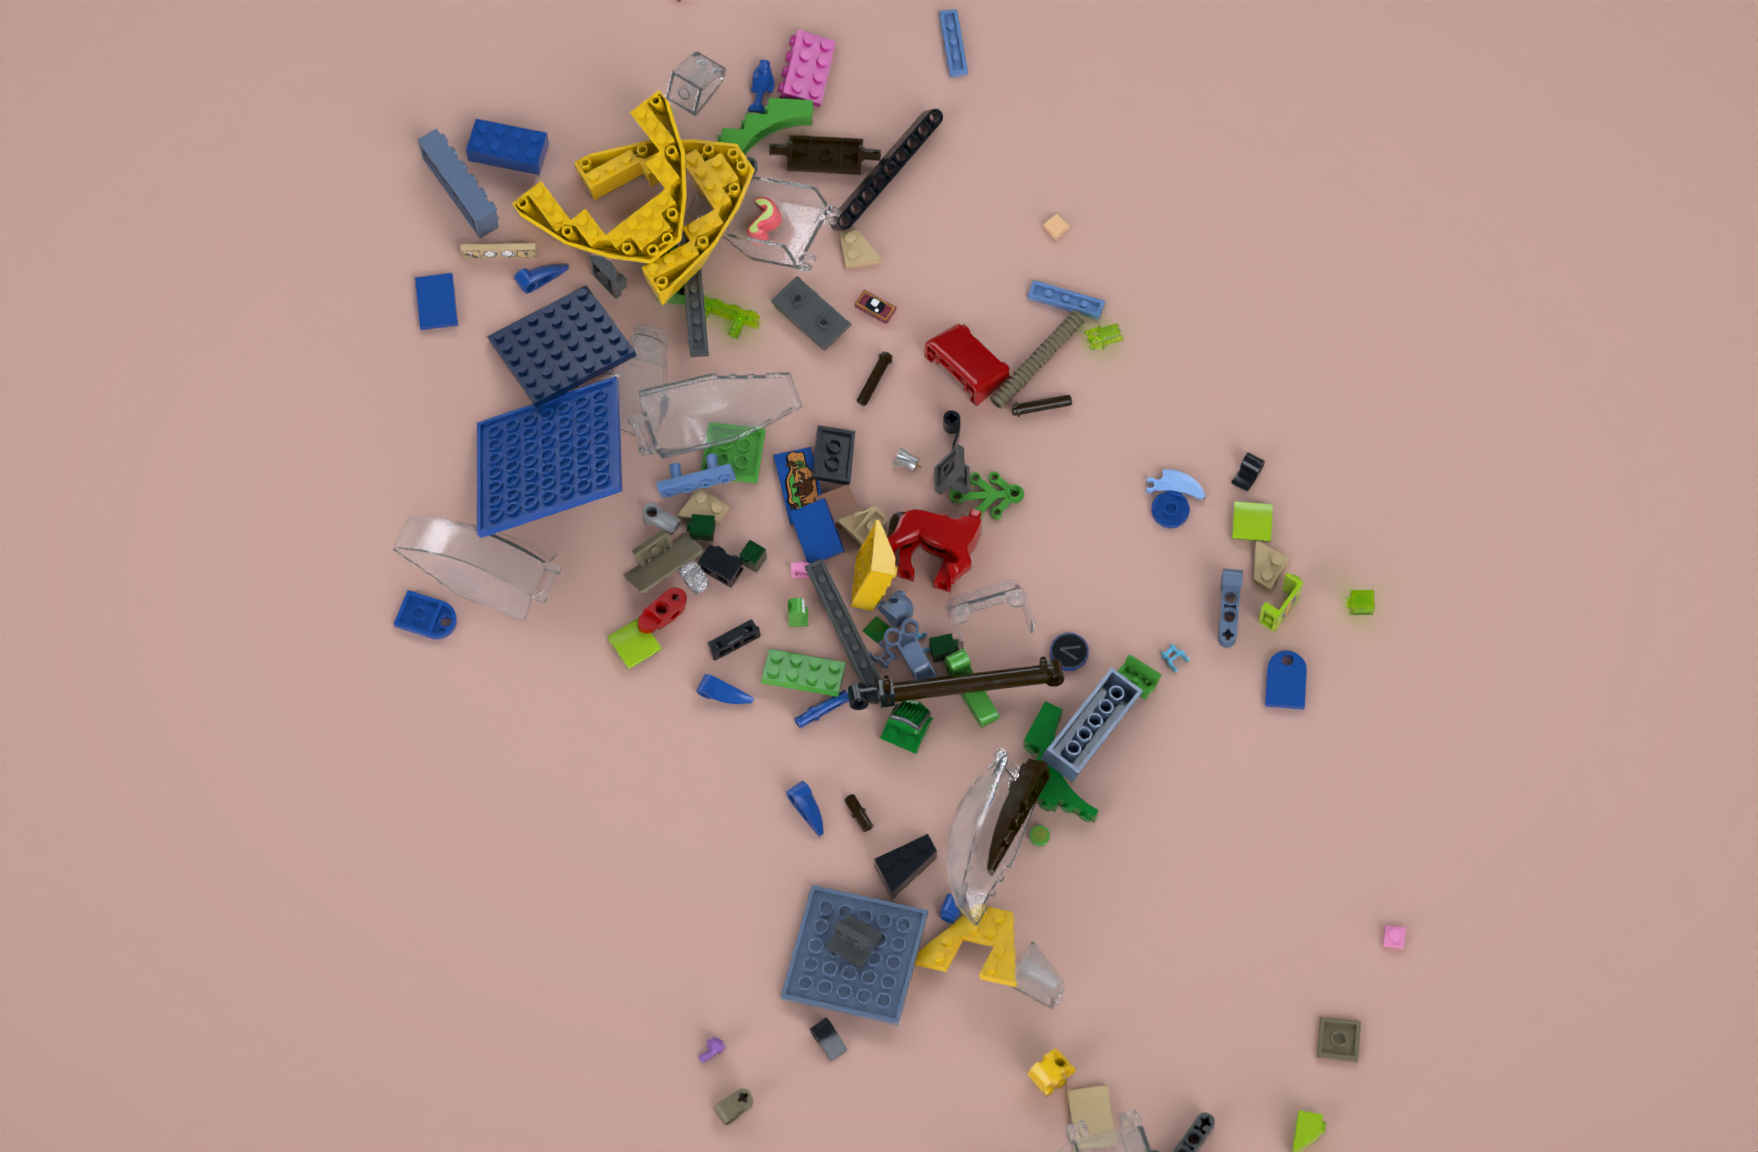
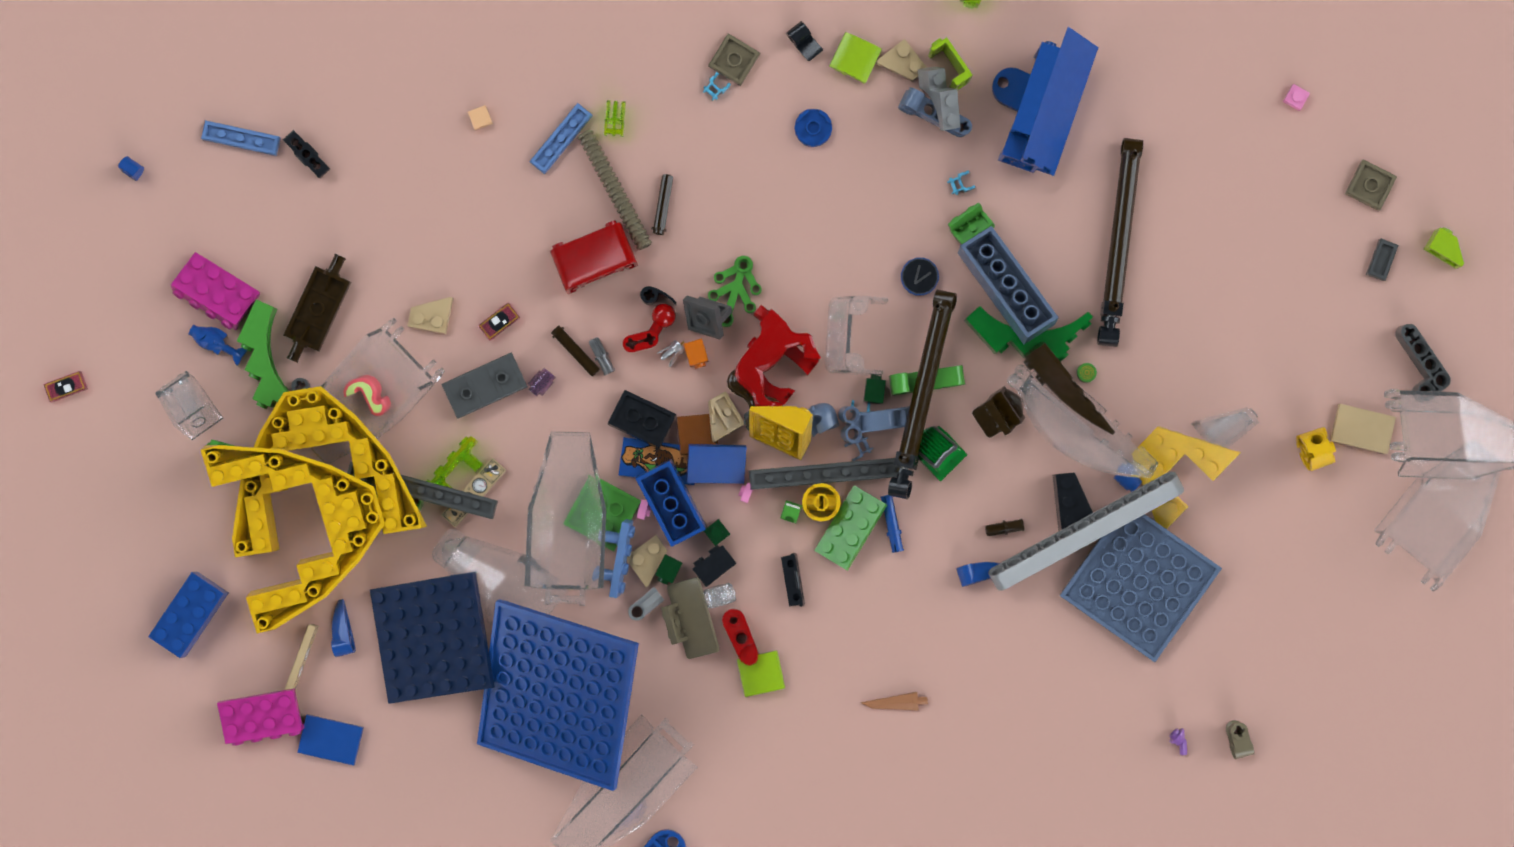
camera: 75 degrees left, 20 degrees up
(436, 233) = (260, 717): none -> dark pink bracket
(458, 183) = (207, 678): sand blue brick -> none
(607, 275) = (379, 561): dark grey slope -> none
(653, 778) = (901, 702): none -> nougat bar
(717, 342) = (479, 486): none -> tan tile
(718, 690) = (840, 610): blue piece -> none
(749, 486) = (644, 510): none -> bright pink plate
(765, 503) = (671, 502): none -> blue brick
(817, 635) = (821, 502): none -> yellow brick
(829, 1039) = (1207, 634): black panel -> none
(833, 359) = (541, 382): none -> clear purple brick
(854, 940) = (1131, 578): dark grey bracket -> none
(876, 629) = (830, 443): green sticker -> none
(878, 402) = (601, 356): none -> flat silver axle
(884, 877) = (1086, 531): none -> light grey beam
(894, 166) = (357, 246): black beam -> none
(914, 480) = (696, 353): none -> orange brick
(936, 439) = (663, 317): none -> red beam
(960, 98) = (290, 138): none -> black piece
(966, 763) = (1000, 413): none -> dark brown piece
(1114, 834) = (1120, 240): none -> dark brown piece
(1176, 406) = (706, 89): none -> medium azure piece
(1178, 482) = (789, 110): light blue piece -> none
(1204, 419) = (734, 59): none -> dark tan tile
(1245, 603) = (945, 99): none -> light grey arch
(1268, 1077) = (1382, 259): none -> dark grey tile
(1284, 700) = (1049, 104): none -> blue panel

